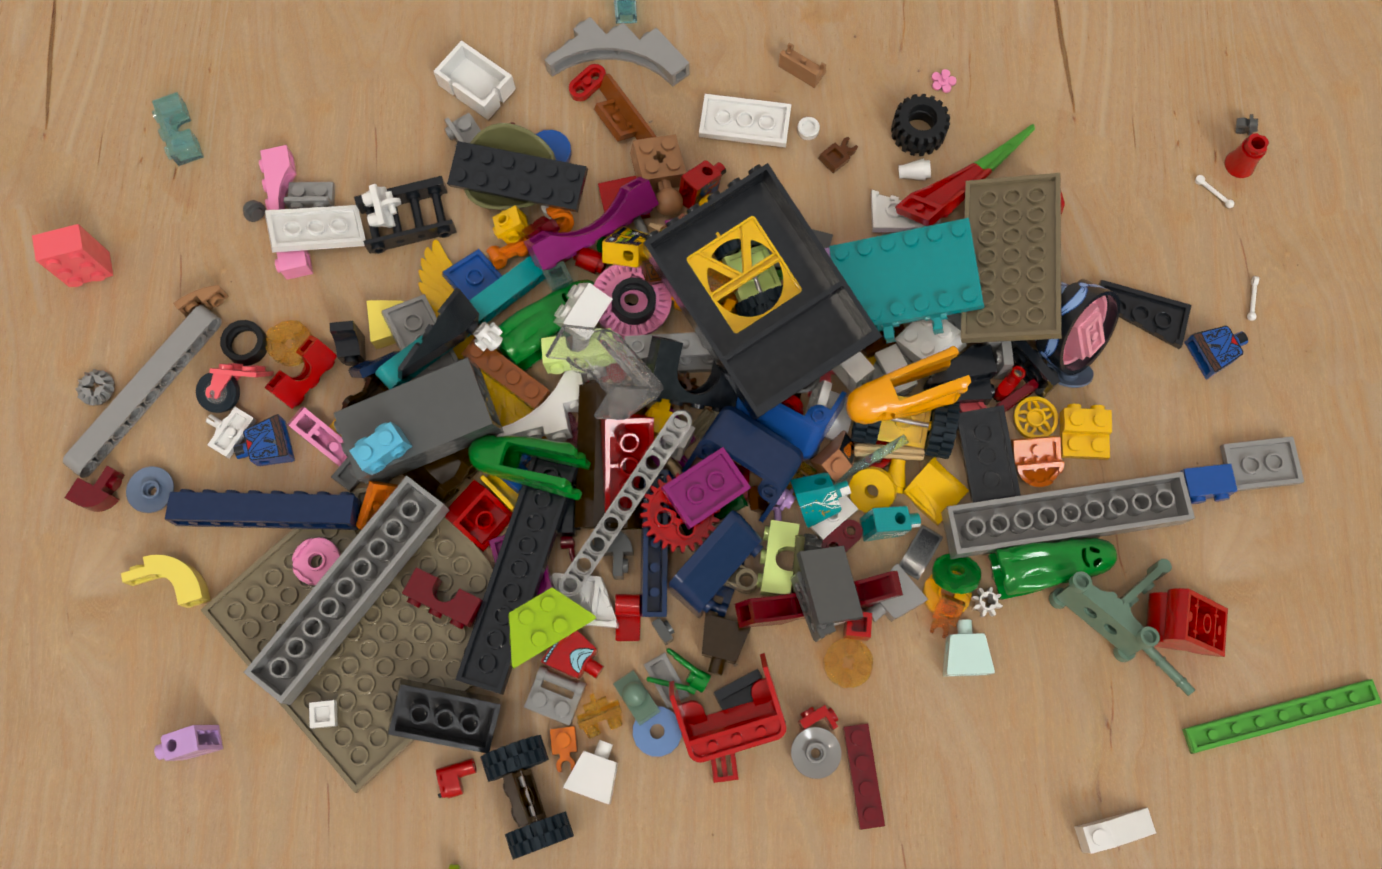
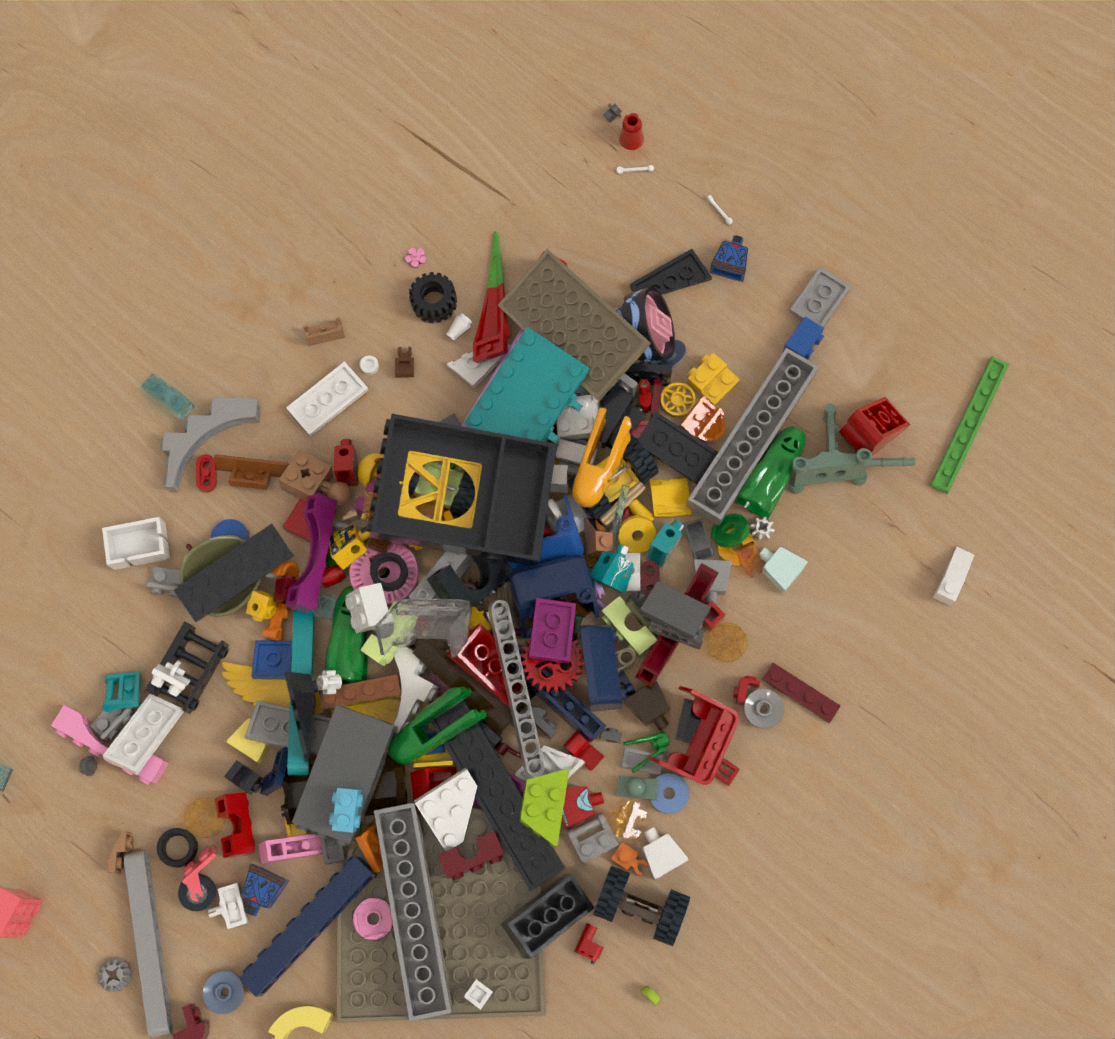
camera: 45 degrees left, 0 degrees up
(342, 185) = (127, 693): none -> teal plate
(467, 540) = (449, 808): none -> white plate

